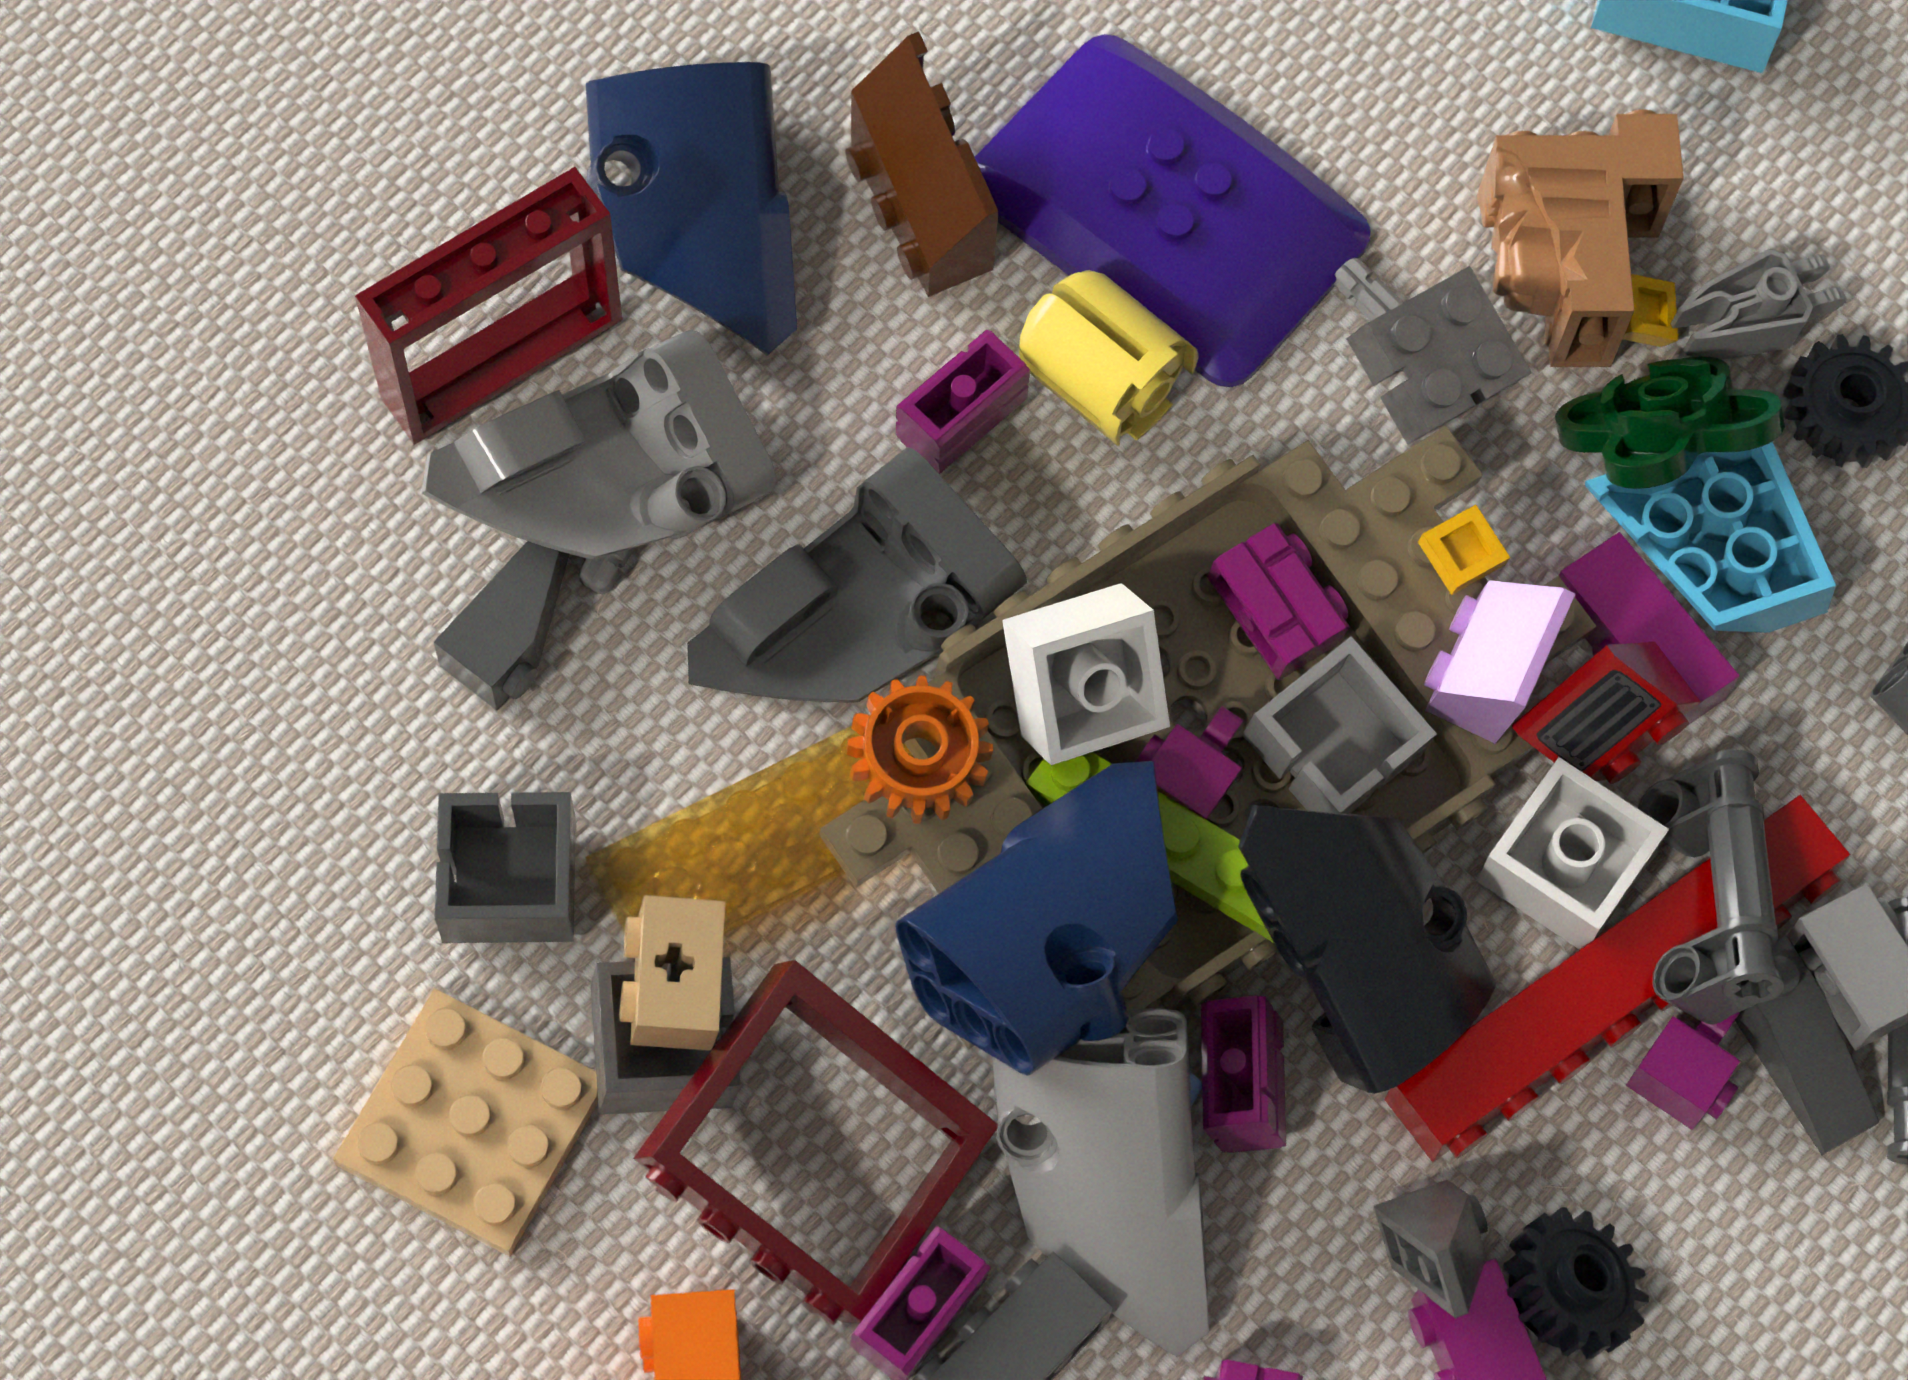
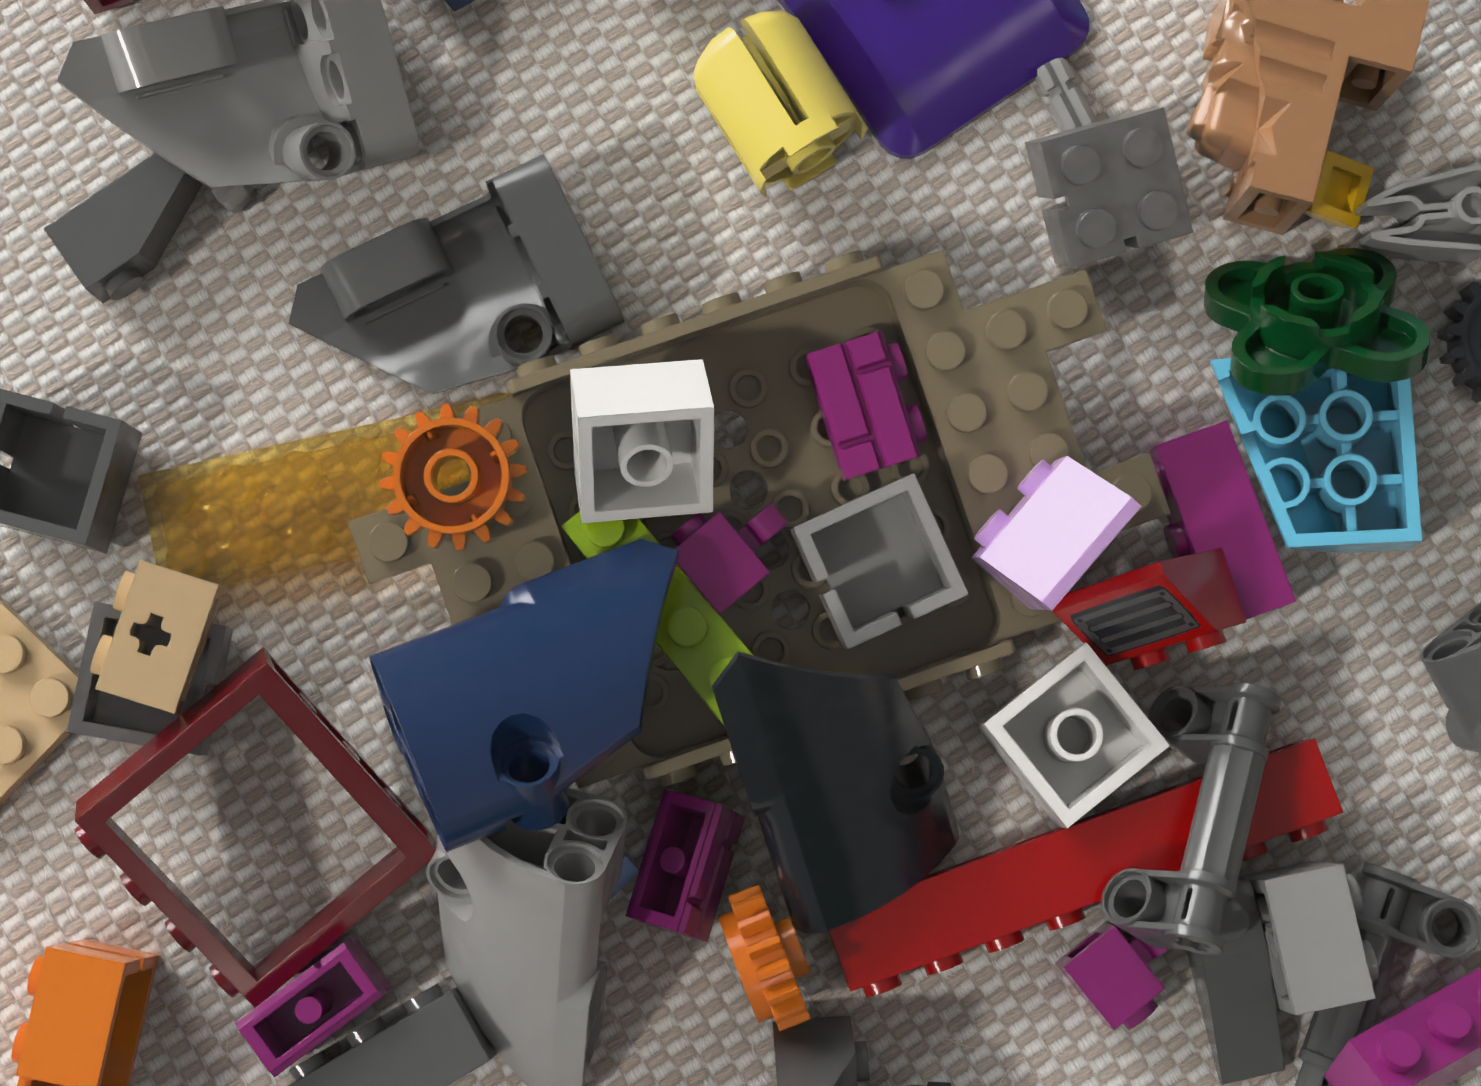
camera: 20 degrees right, 15 degrees up
(963, 401) = (624, 112): magenta brick -> none
(1350, 1135) = (766, 958): none -> orange gear
(1463, 549) = (1057, 409): yellow plate -> none

